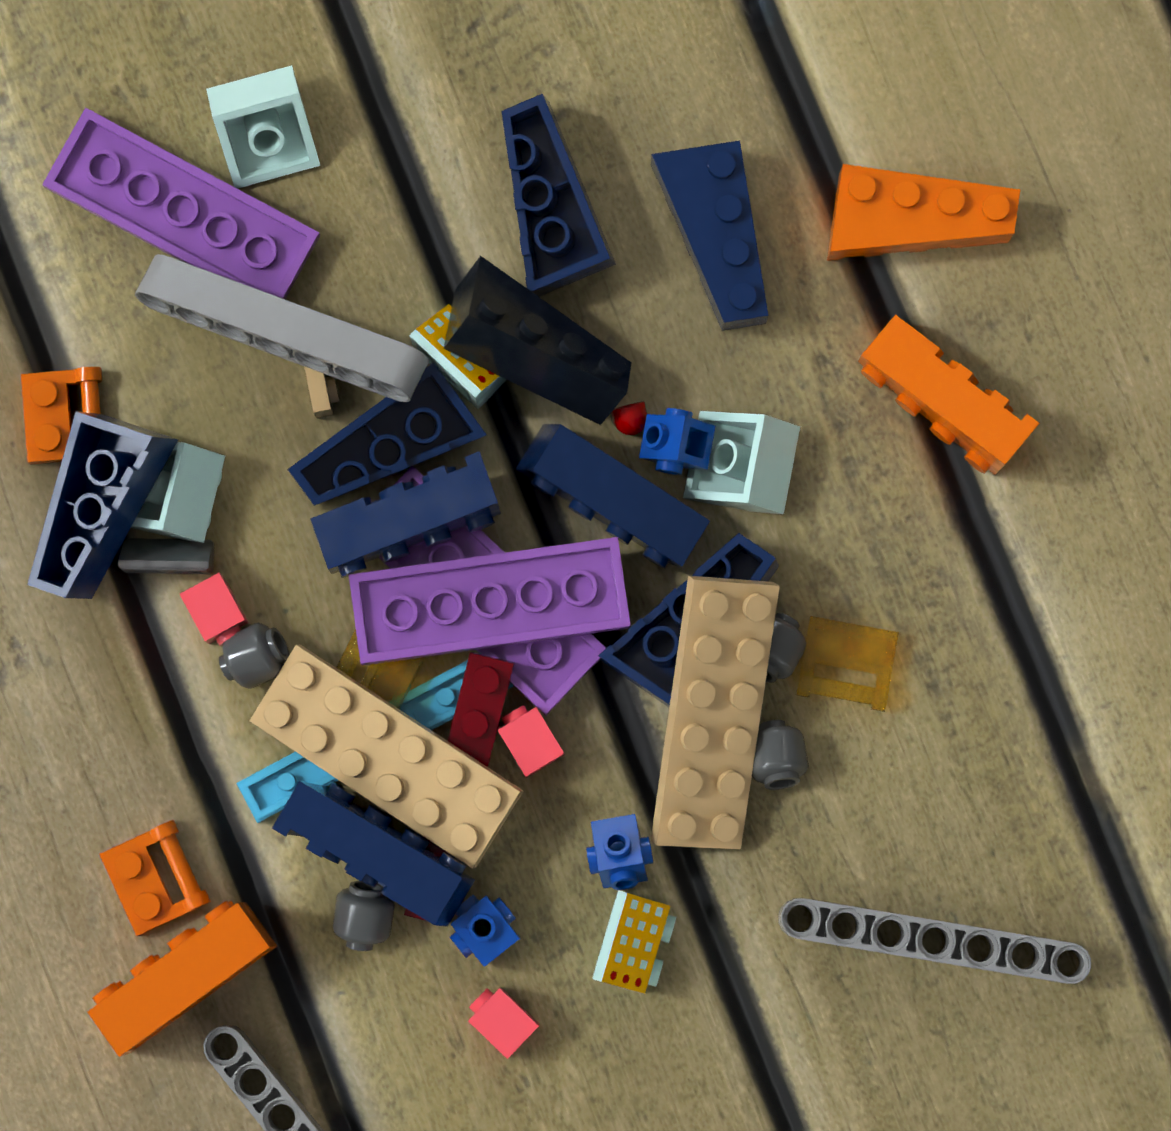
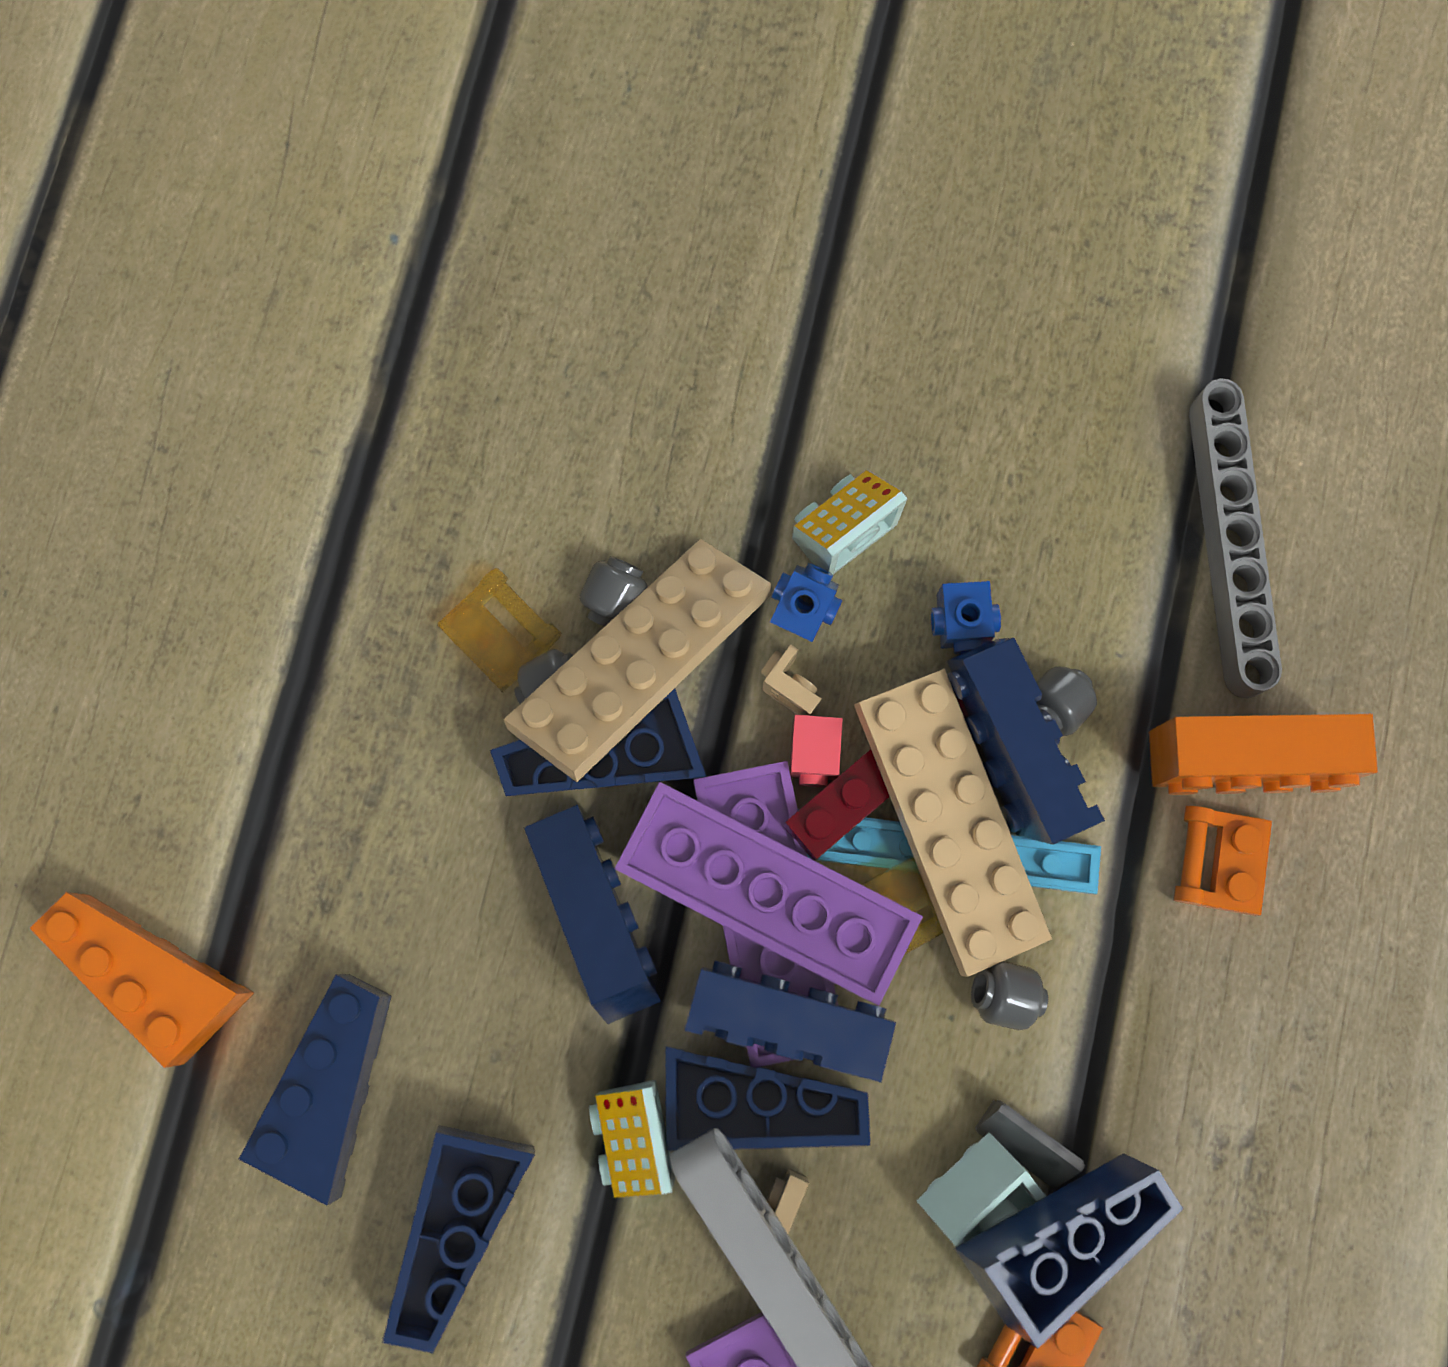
camera: 145 degrees left, 5 degrees down
(214, 609) = (1018, 1062): coral brick -> none
(502, 1021) = (1000, 533): coral brick -> none
(533, 344) = (564, 1103): black wedge -> none
(577, 777) = (794, 692): none -> tan bracket
(630, 418) = (527, 973): red hinge -> none
(677, 441) = (501, 920): blue brick -> none
(747, 463) = (458, 863): light aqua slope -> none
(945, 396) = (239, 790): orange wedge -> none
(956, 941) = (588, 338): light grey beam -> none

